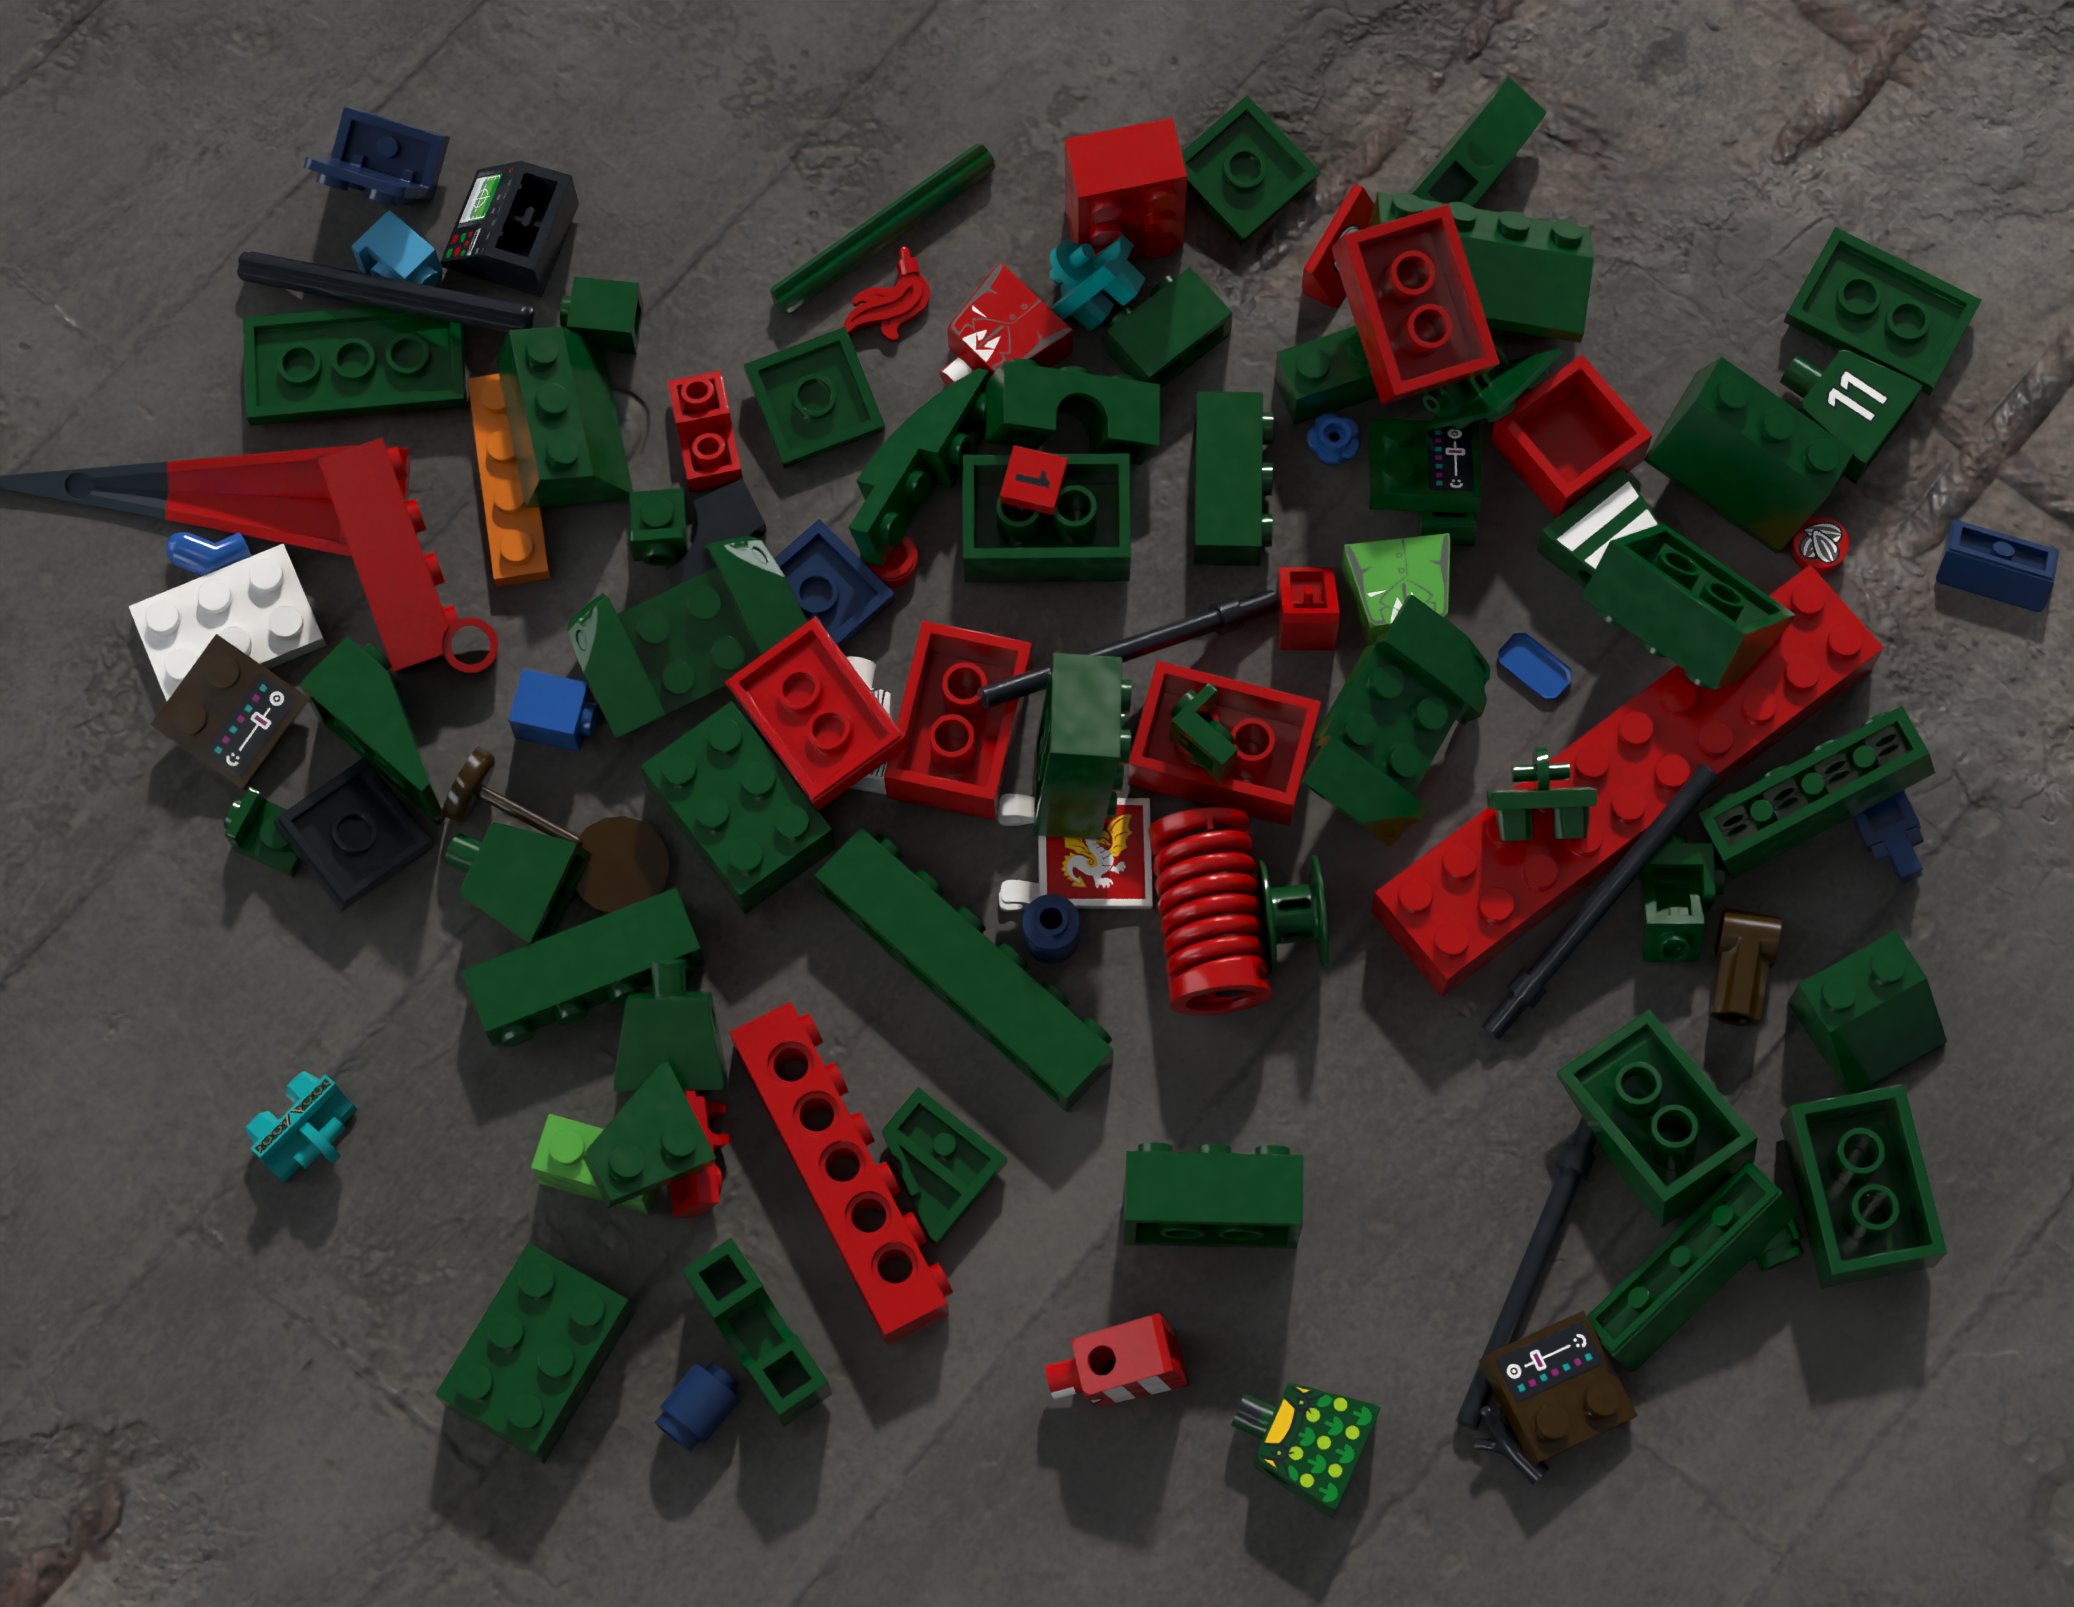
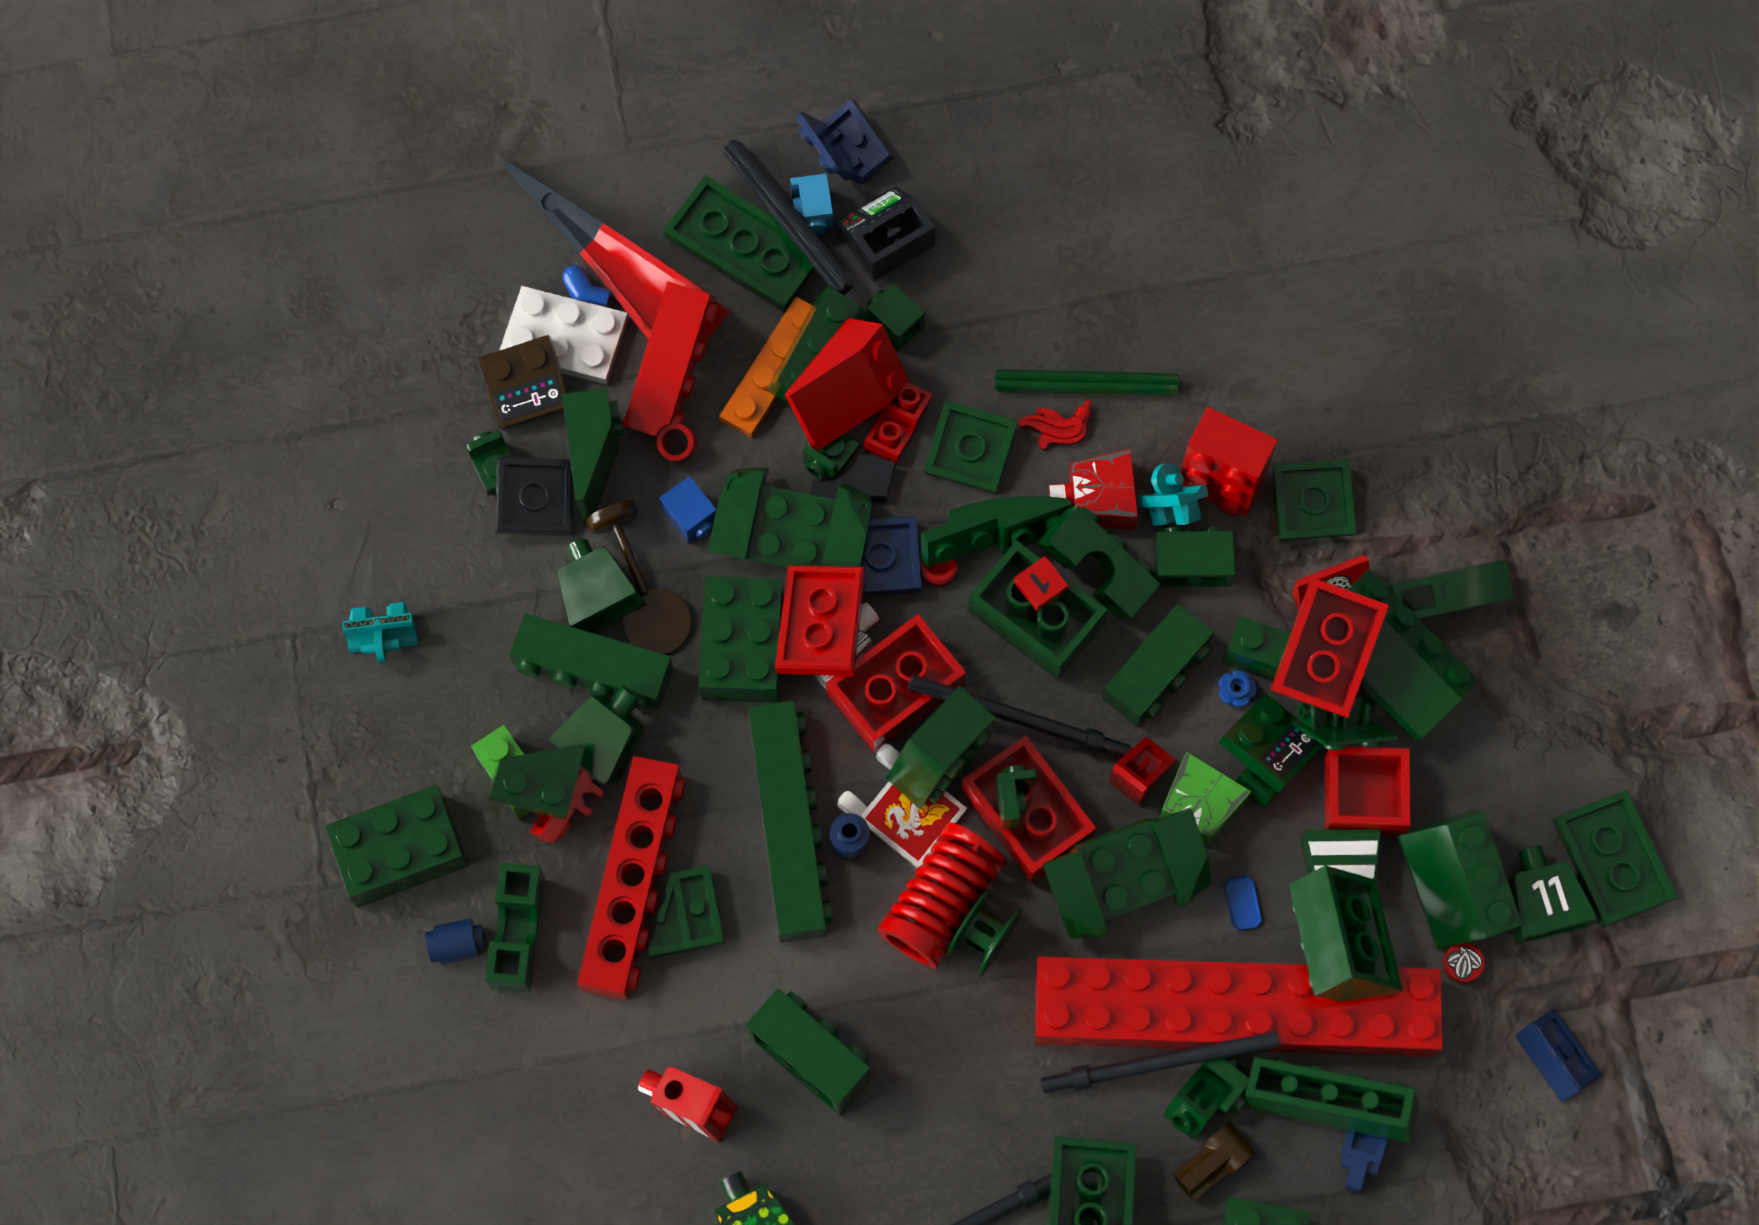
camera: 40 degrees right, 0 degrees up
(619, 422) = (846, 382): none -> red slope
(1568, 805) = (1180, 993): dark green hips -> none

